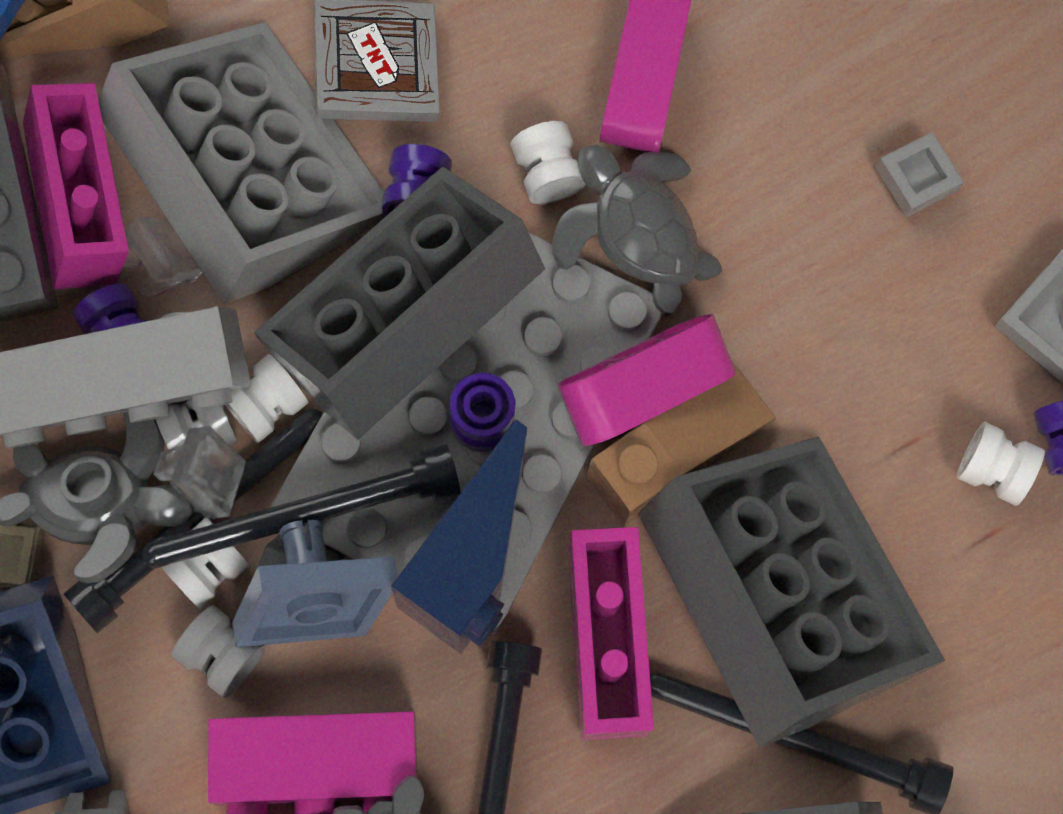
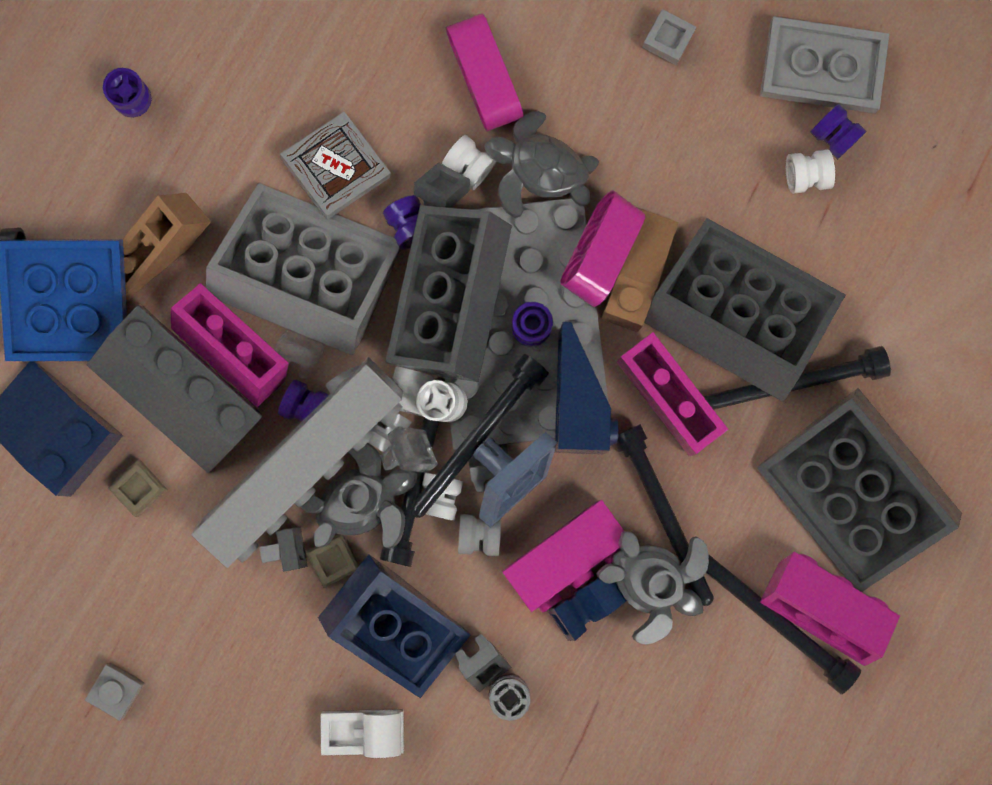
camera: 30 degrees left, 10 degrees up
(292, 434) = (434, 398): none -> white wheel
(490, 166) = (441, 187): none -> dark grey tile

